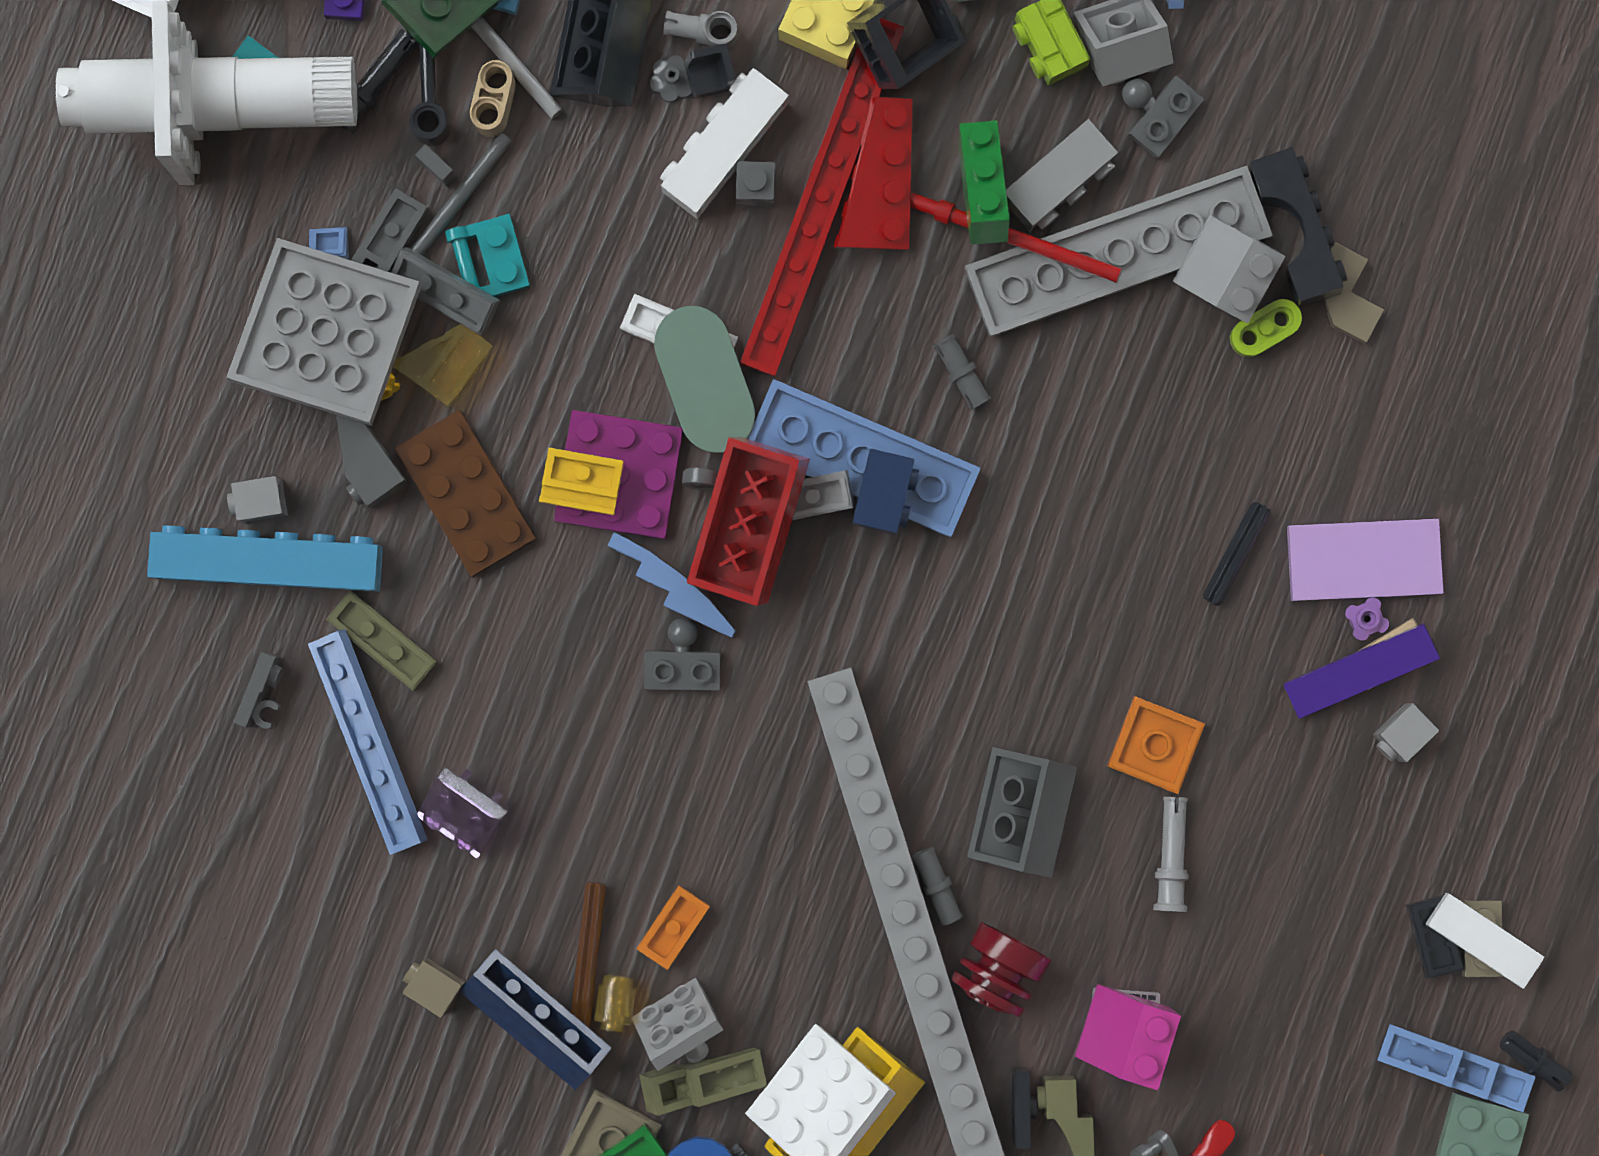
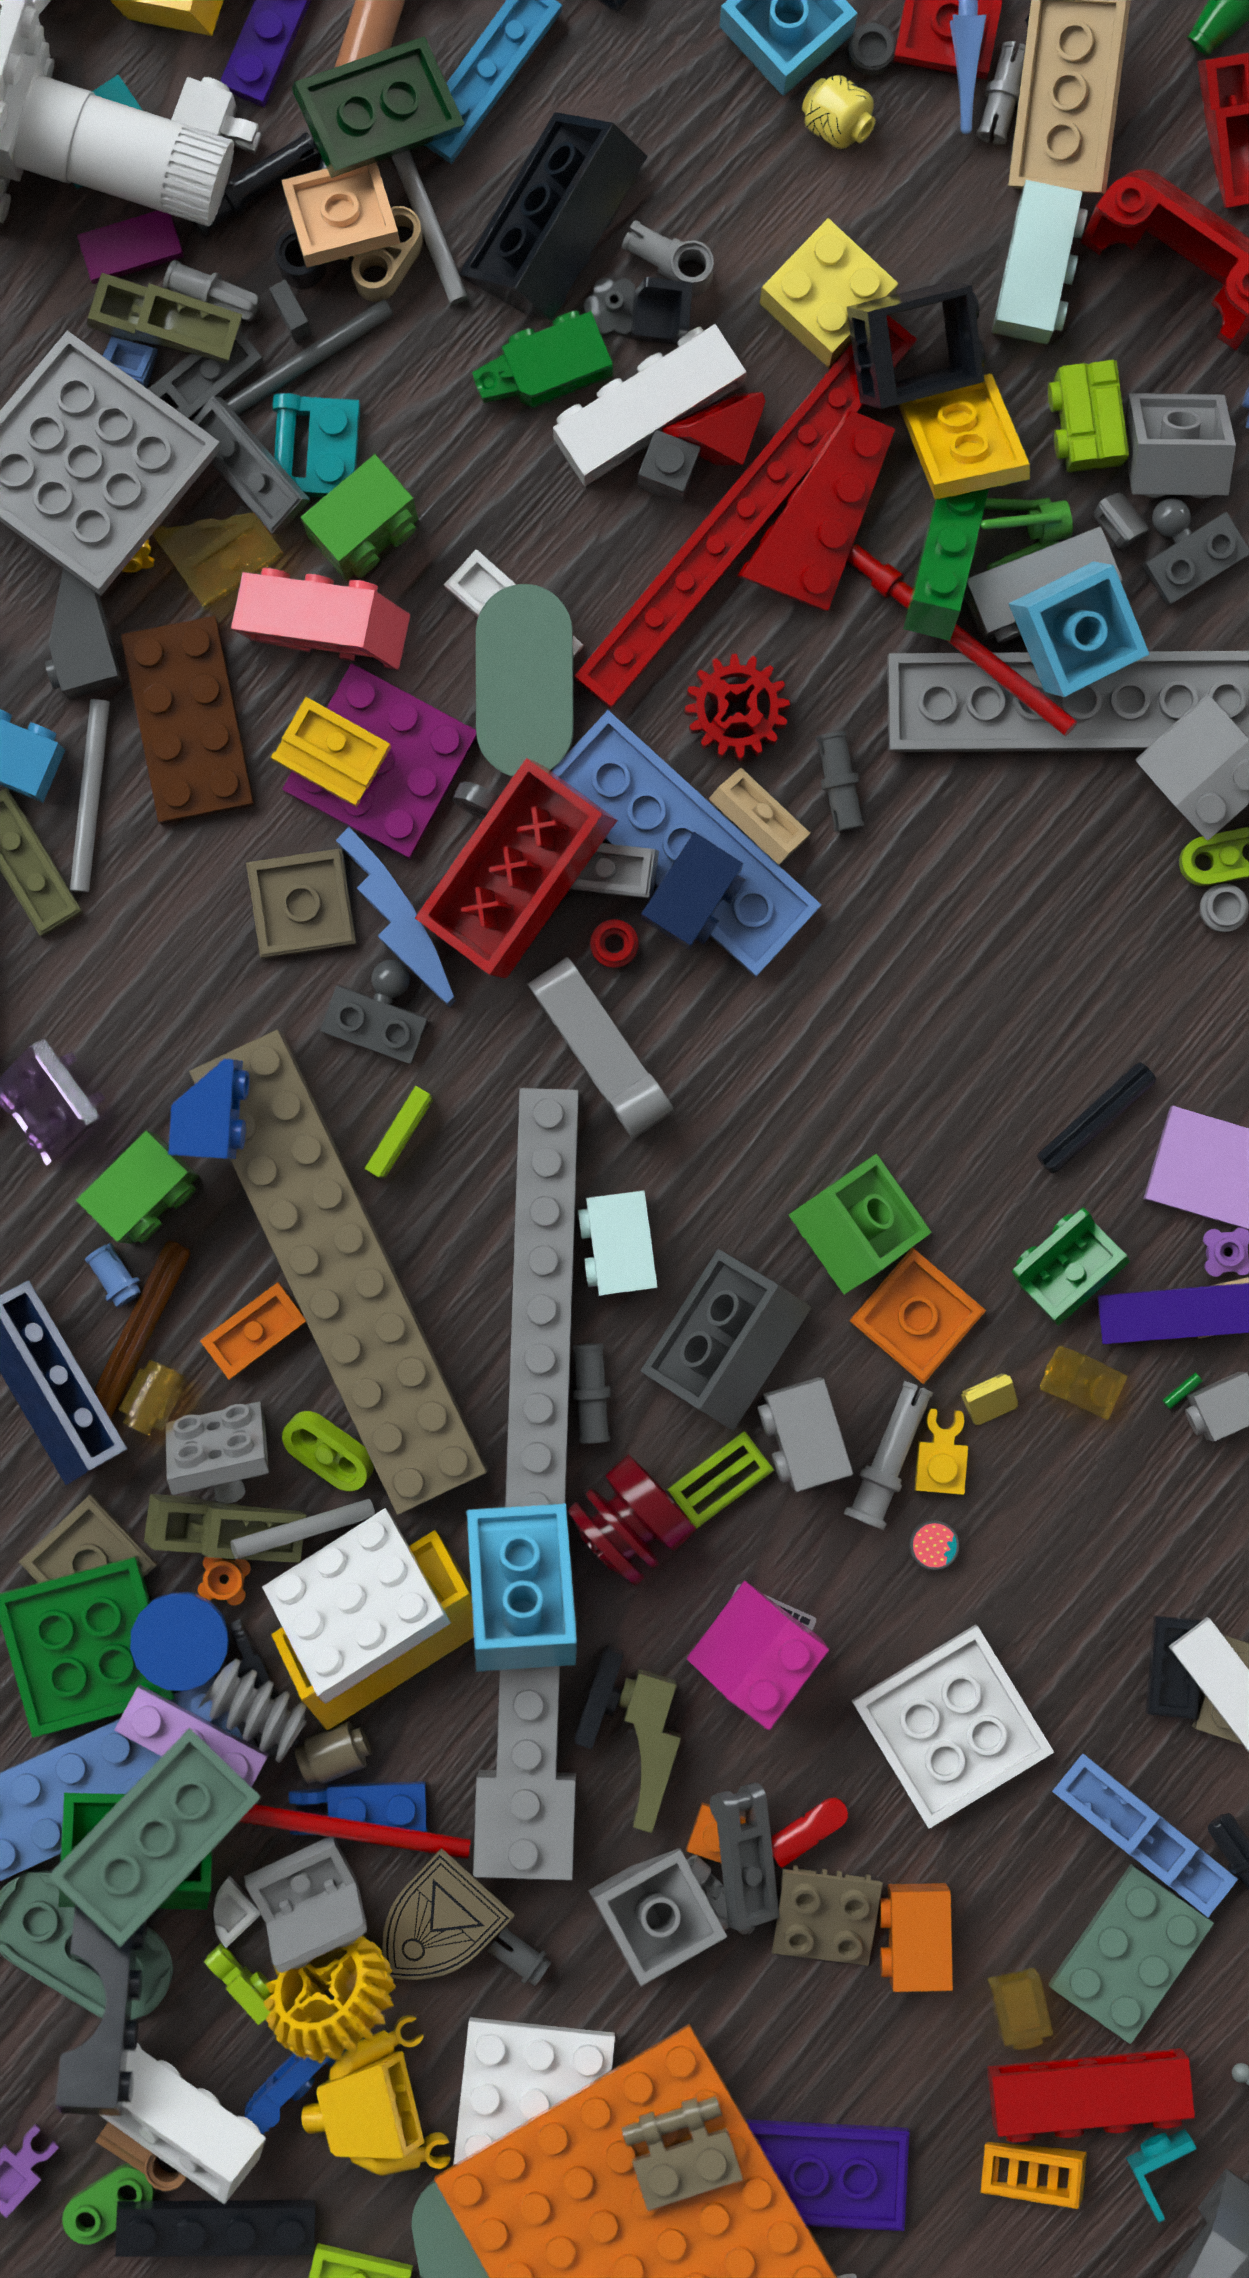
camera: 20 degrees right, 0 degrees up
(299, 158) = (130, 245): none -> magenta tile
(325, 38) = (213, 109): none -> white brick
(345, 204) = (163, 318): none -> olive slope
(372, 171) = (211, 289): none -> light grey axle
(413, 575) = (89, 796): none -> light grey bar
(449, 82) = (340, 214): none -> light nougat tile
(537, 383) = (320, 616): none -> coral wedge
(543, 302) = (361, 519): none -> bright green brick
(552, 853) = (139, 1190): none -> bright green brick
(555, 923) = (113, 1276): none -> medium blue pin
(587, 784) = (207, 1115): none -> blue slope
(597, 599) = (301, 903): none -> dark tan tile
(638, 138) = (547, 362): none -> green hinge
(721, 862) = (346, 1283): none -> dark tan brick
(723, 1125) = (231, 1591): none -> orange plate
(729, 744) = (399, 1133): none -> lime tile
(759, 996) = (327, 1451): none -> lime plate
(760, 1061) = (302, 1528): none -> light grey bar
(784, 142) = (722, 428): none -> red slope
(841, 537) = (614, 928): none -> red plate
(850, 338) = (721, 691): none -> red gear
(855, 630) = (600, 1048): none -> light grey beam
(912, 418) = (759, 816): none -> tan plate
(920, 769) = (619, 1242): none -> light aqua brick
(939, 1049) = (521, 1587): none -> medium azure slope
(968, 90) = (965, 440): none -> yellow plate
(1040, 909) = (687, 1503): none -> lime tile
(1046, 129) = (1044, 521): none -> bright green plant
(1091, 693) = (860, 1224): none -> bright green slope
(1099, 108) = (1120, 520): none -> light grey slope
(1100, 200) = (1079, 628): none -> medium azure brick
(1107, 862) = (806, 1434): none -> light grey brick
(1210, 847) = (941, 1462): none -> yellow plate
(1227, 909) = (934, 1544): none -> coral tile
(1230, 787) = (990, 1399): none -> light yellow slope
(1254, 670) = (1069, 1266): none -> green bracket
(1275, 367) = (1224, 908): none -> light grey plate
(1287, 1037) = (952, 1726): none -> white plate
(1294, 751) = (1083, 1381): none -> clear yellow bracket
(1369, 731) = (1182, 1391): none -> green piece

